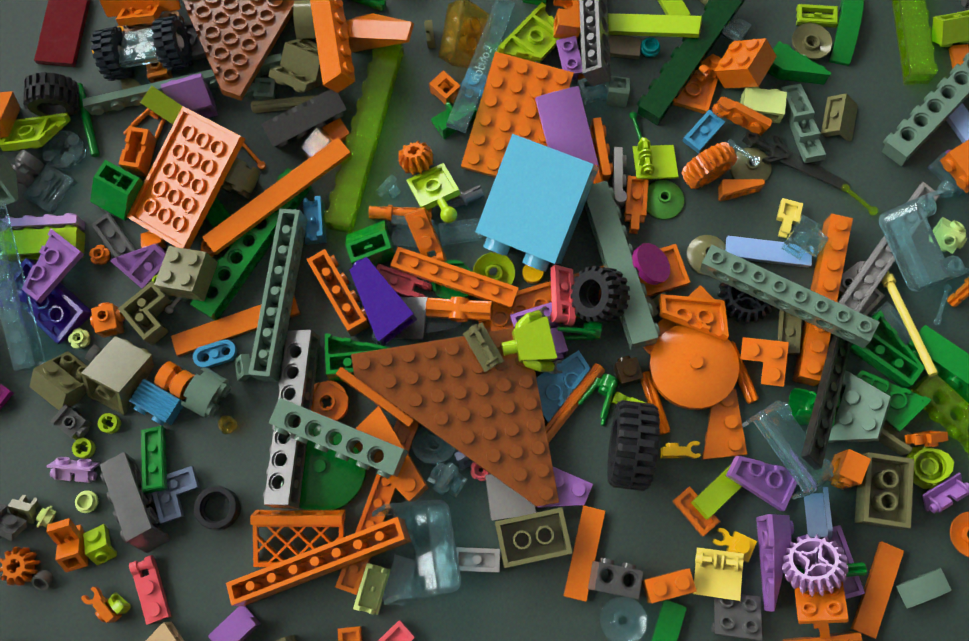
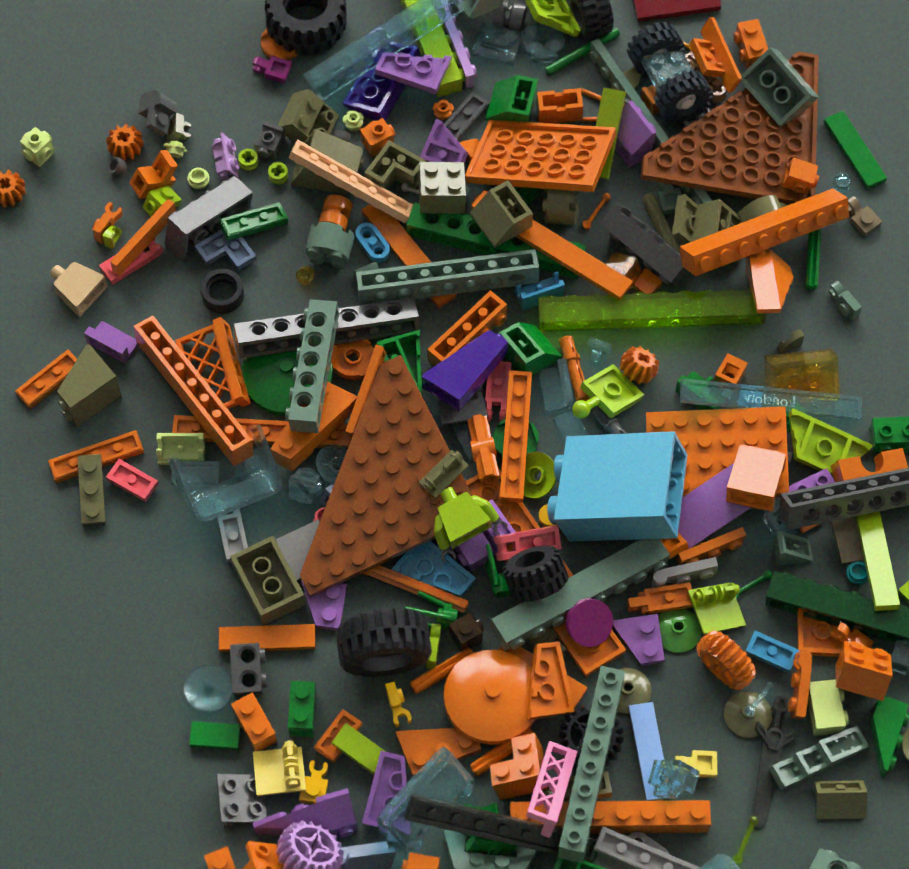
camera: 70 degrees right, 10 degrees down
(135, 572) = (142, 238): none -> orange tile
(147, 355) = (351, 181): none -> light nougat plate
(156, 402) = (308, 205): dark azure brick -> none
(236, 225) = (502, 214): none -> olive slope
(425, 234) = (553, 396): orange plate -> none
(561, 87) = (755, 477): none -> panel
(665, 537) = (302, 709): none -> green brick
(666, 227) = (642, 637): none -> medium lavender wing
(736, 188) = (711, 698): orange slope -> none
(806, 331) = (557, 785): none -> bright pink fence

